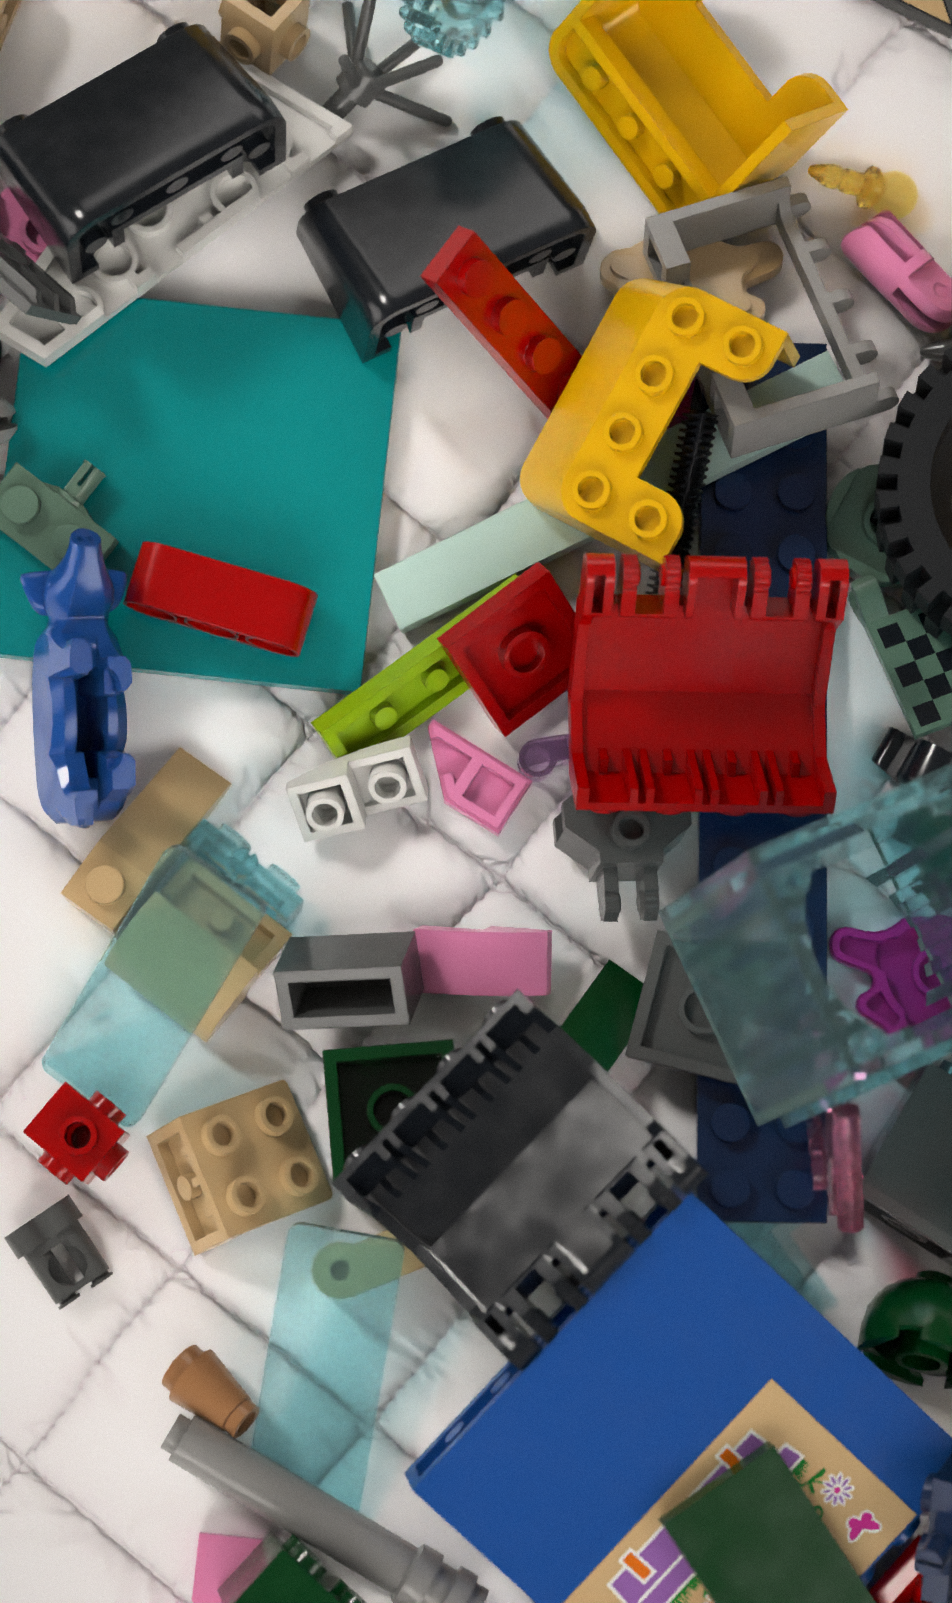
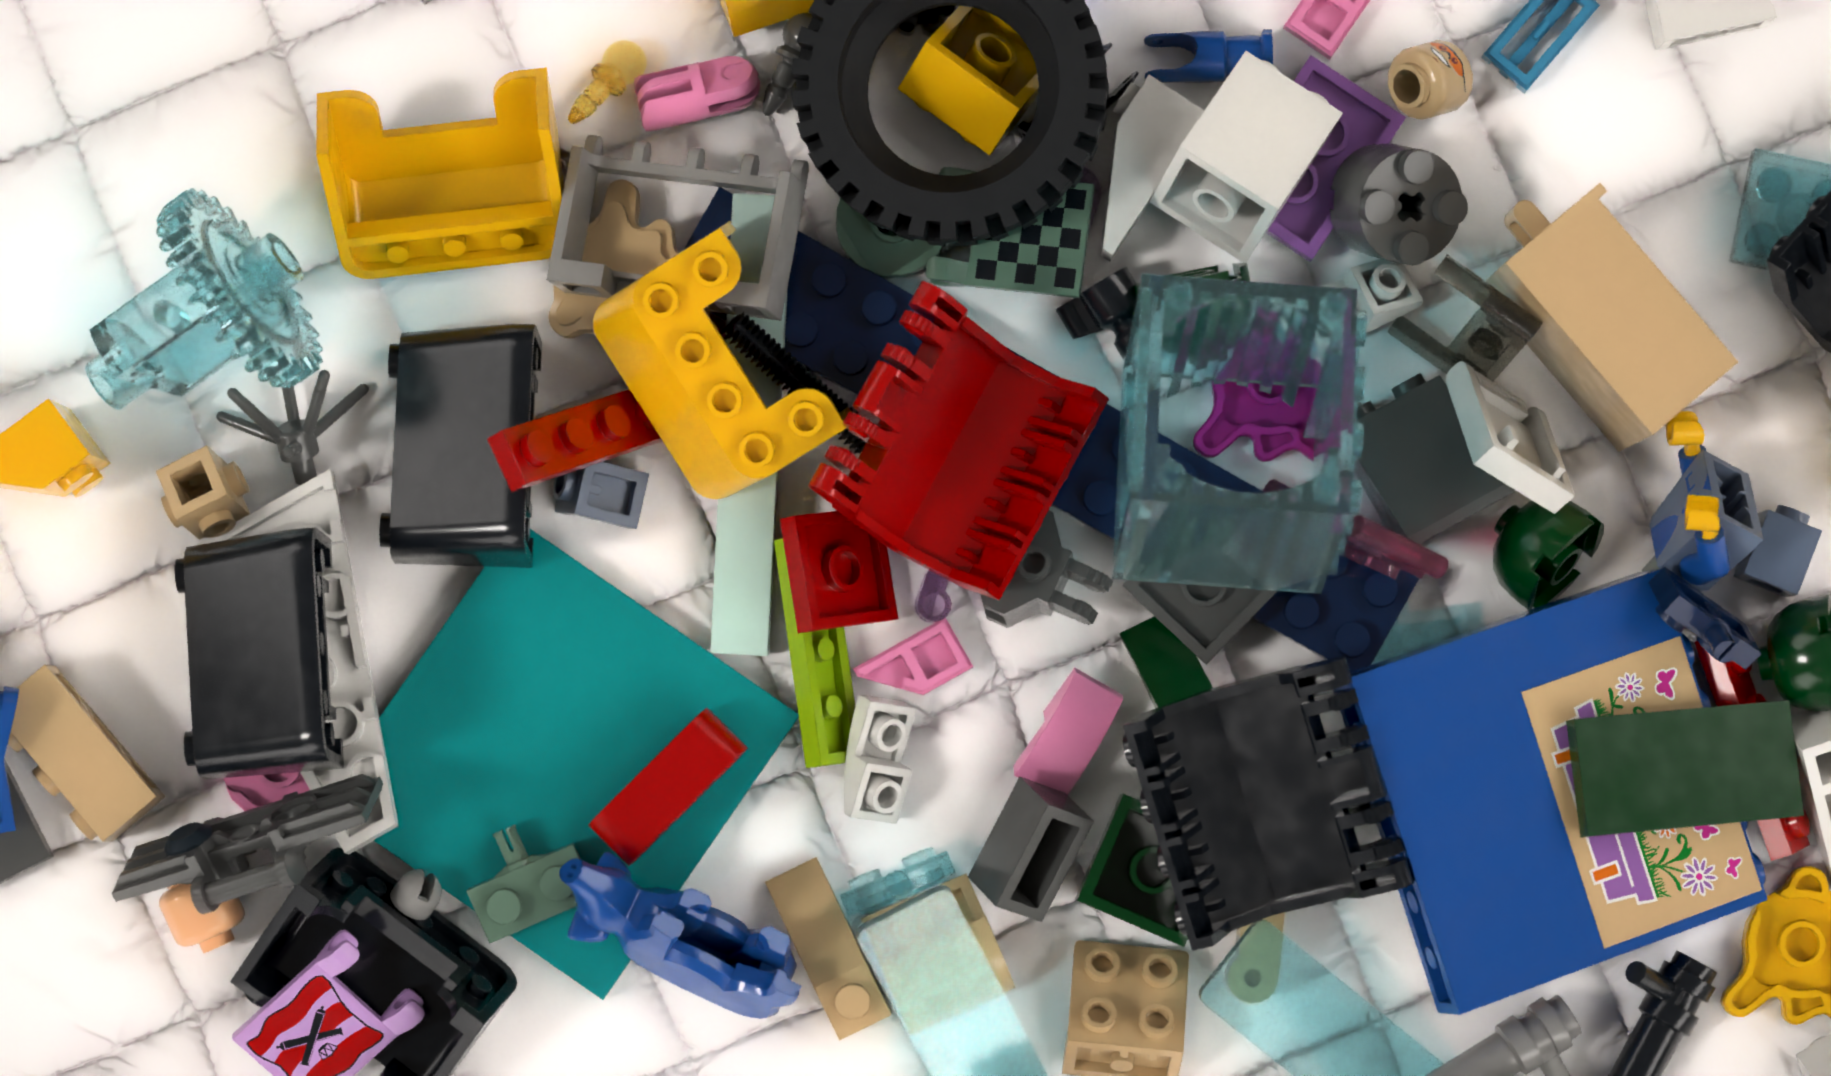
camera: 60 degrees left, 5 degrees up
(470, 389) = (602, 494): none -> sand blue bracket

